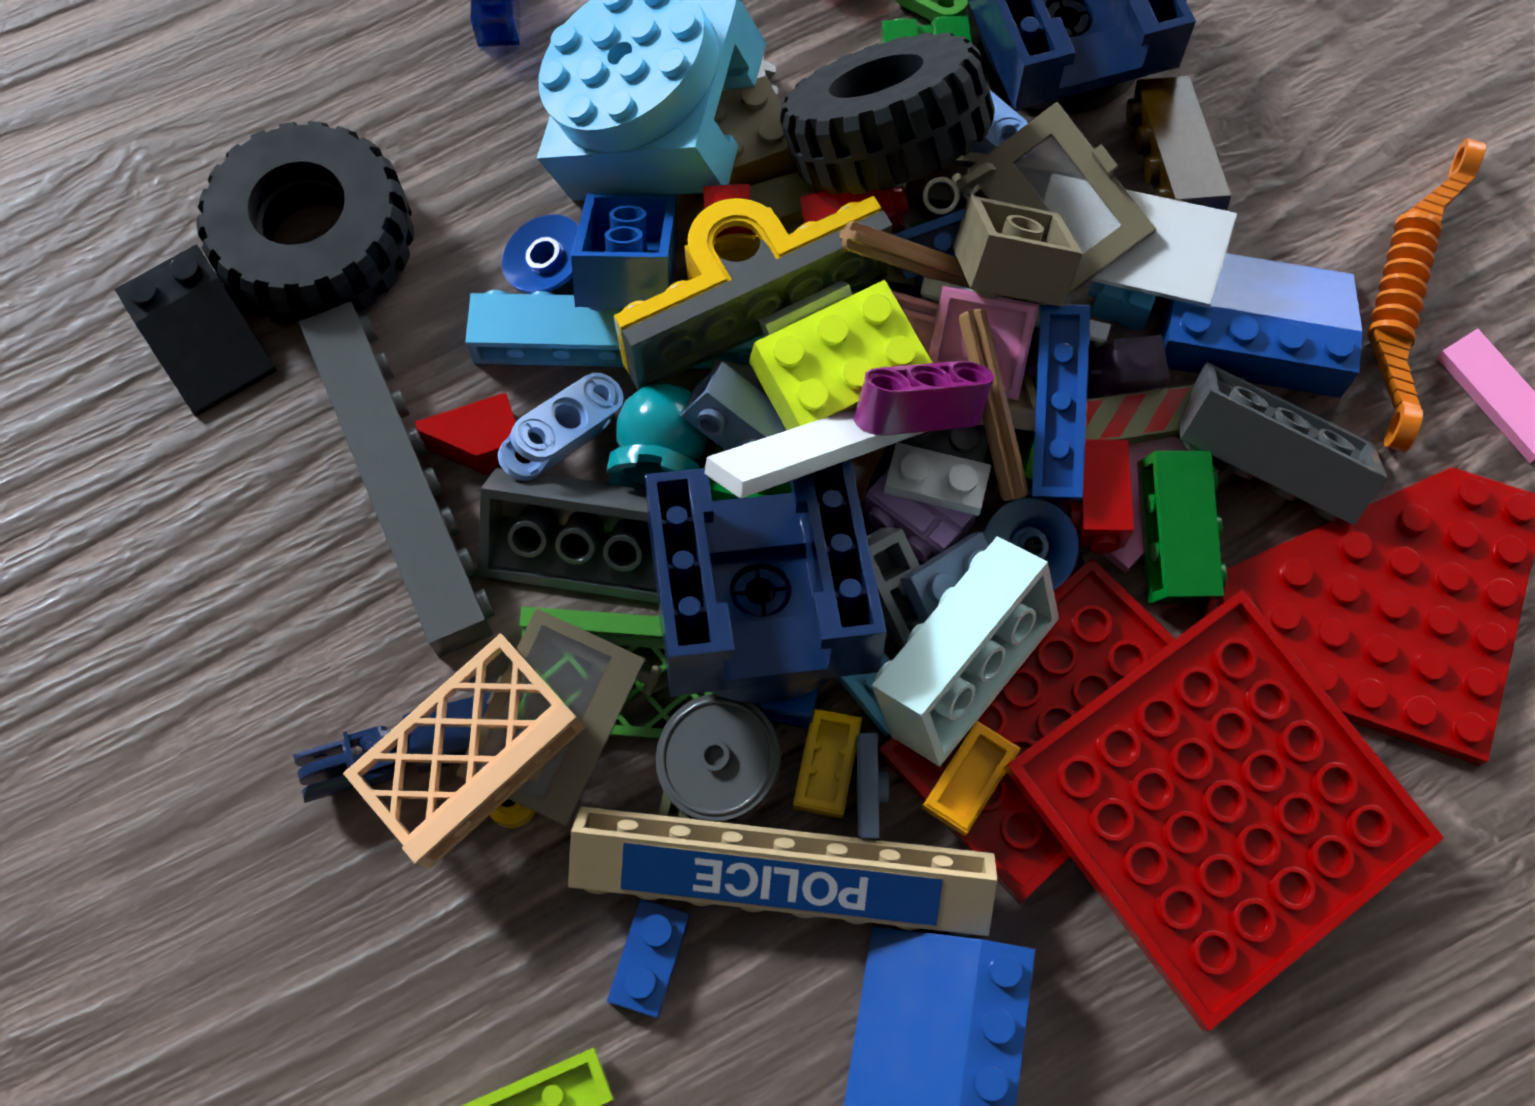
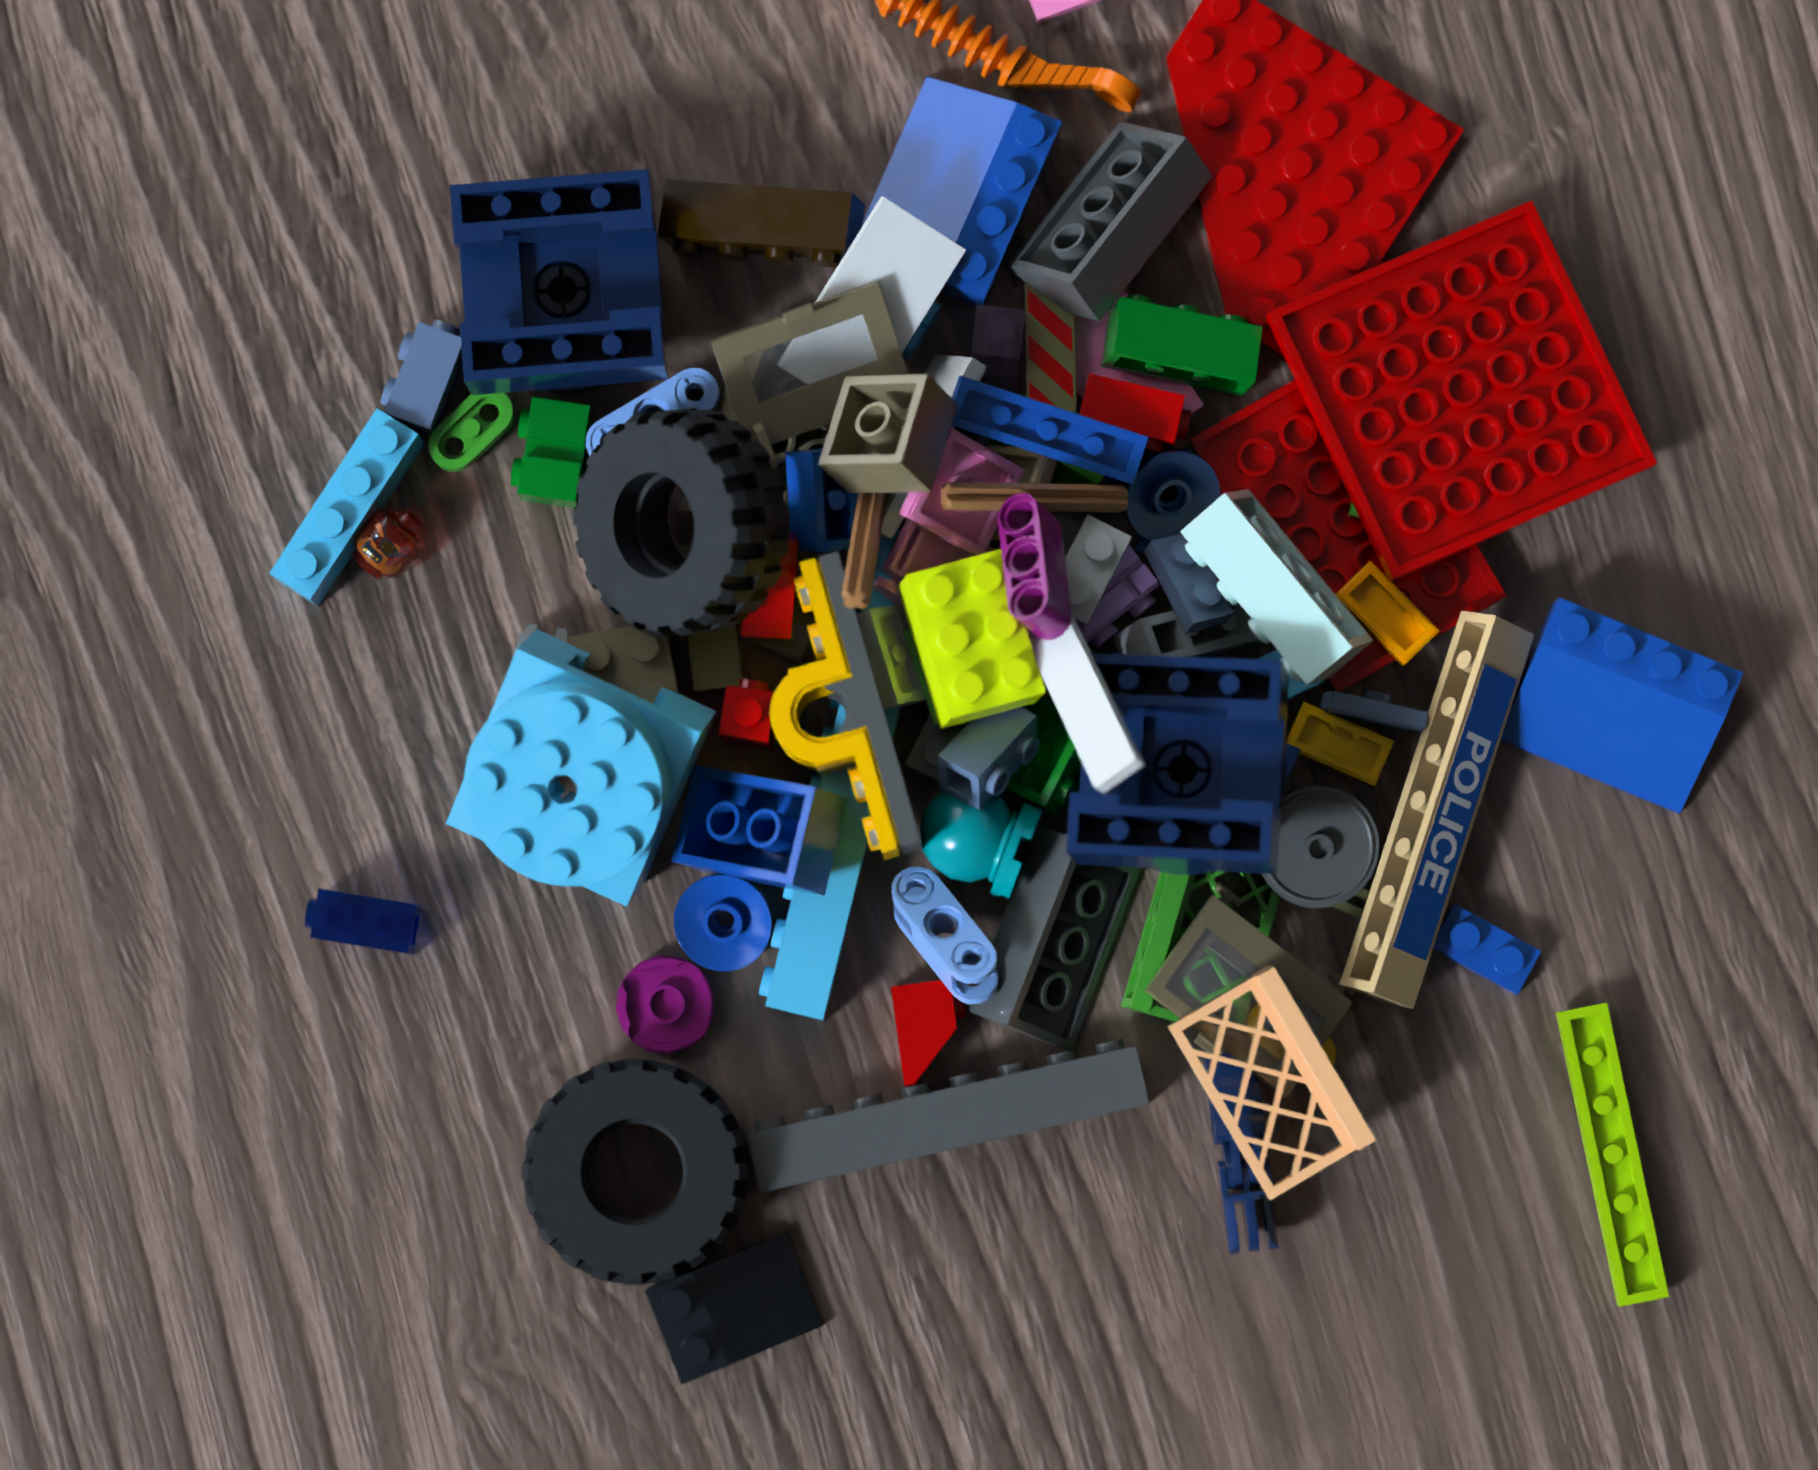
camera: 80 degrees left, 15 degrees up
(465, 233) = (665, 1004): none -> magenta tile

